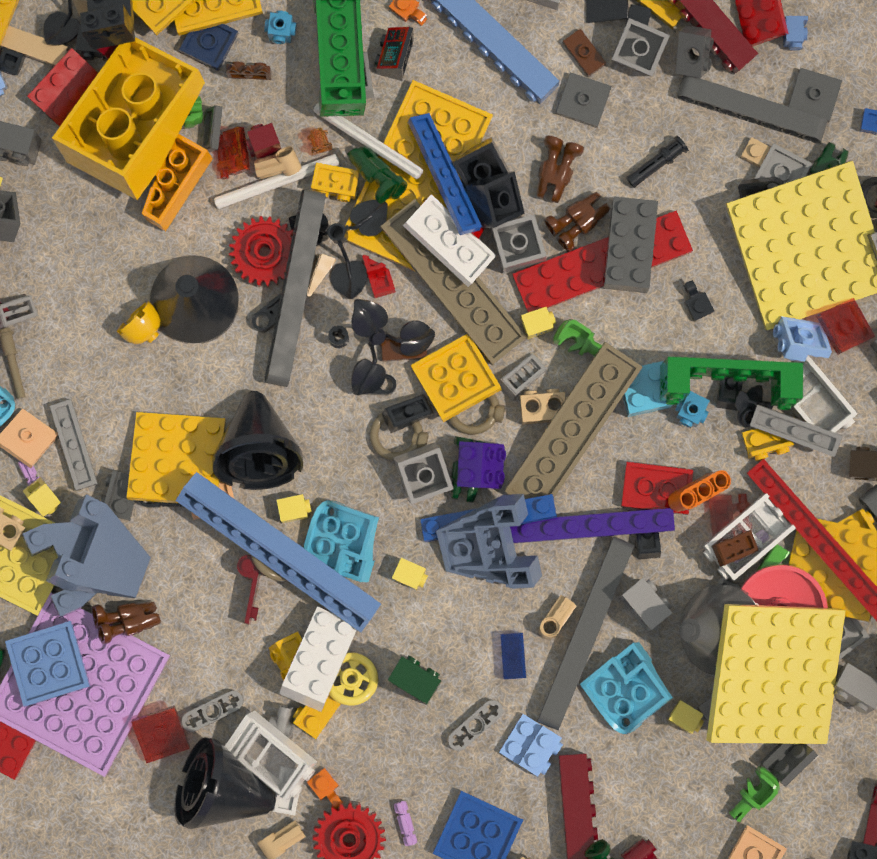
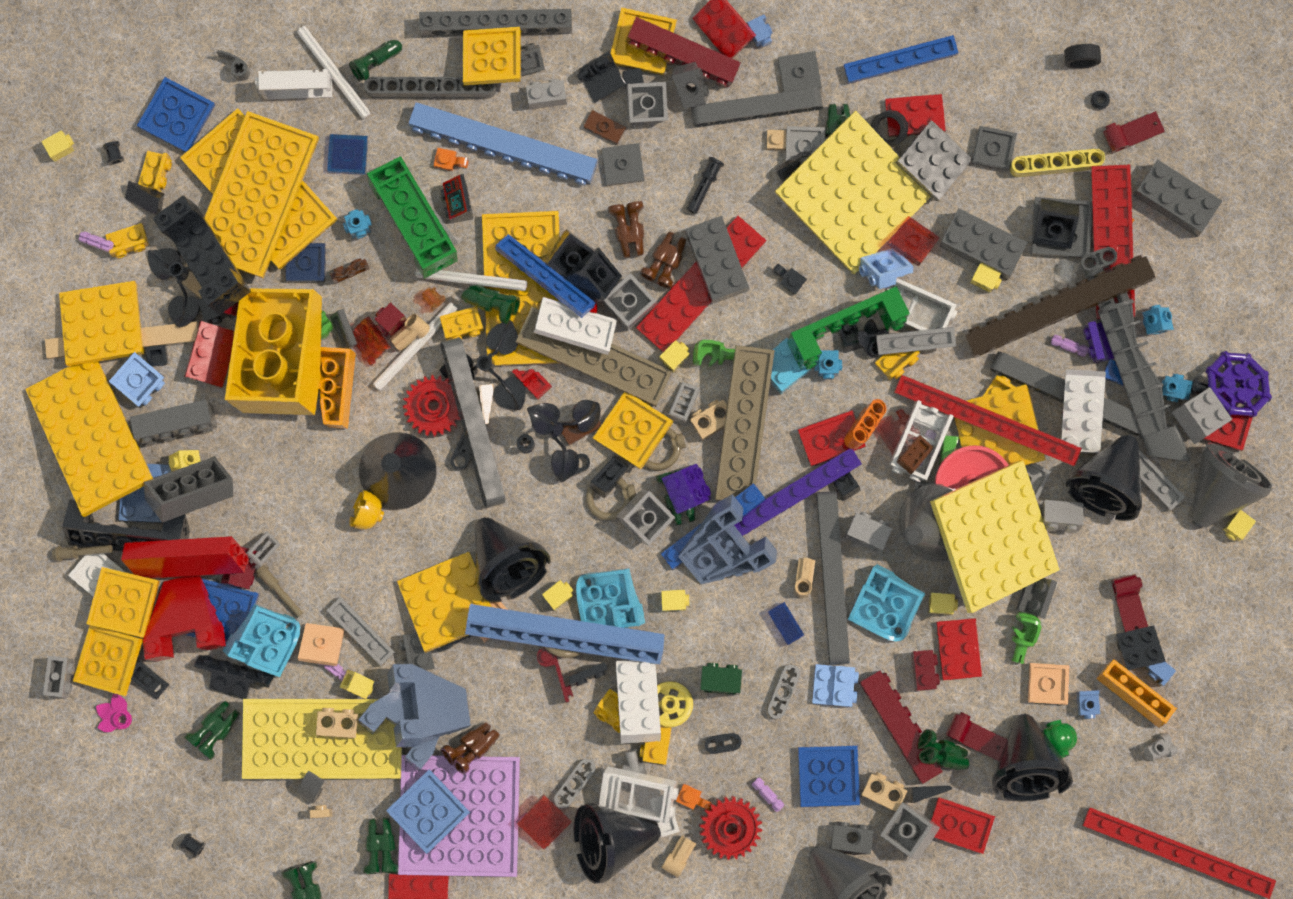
camera: 25 degrees left, 0 degrees up
(291, 606) = (596, 671): none -> black plate
(388, 742) = (724, 748): none -> black beam
(632, 776) = (924, 670): none -> dark red brick
(680, 773) = (959, 649): none -> red plate

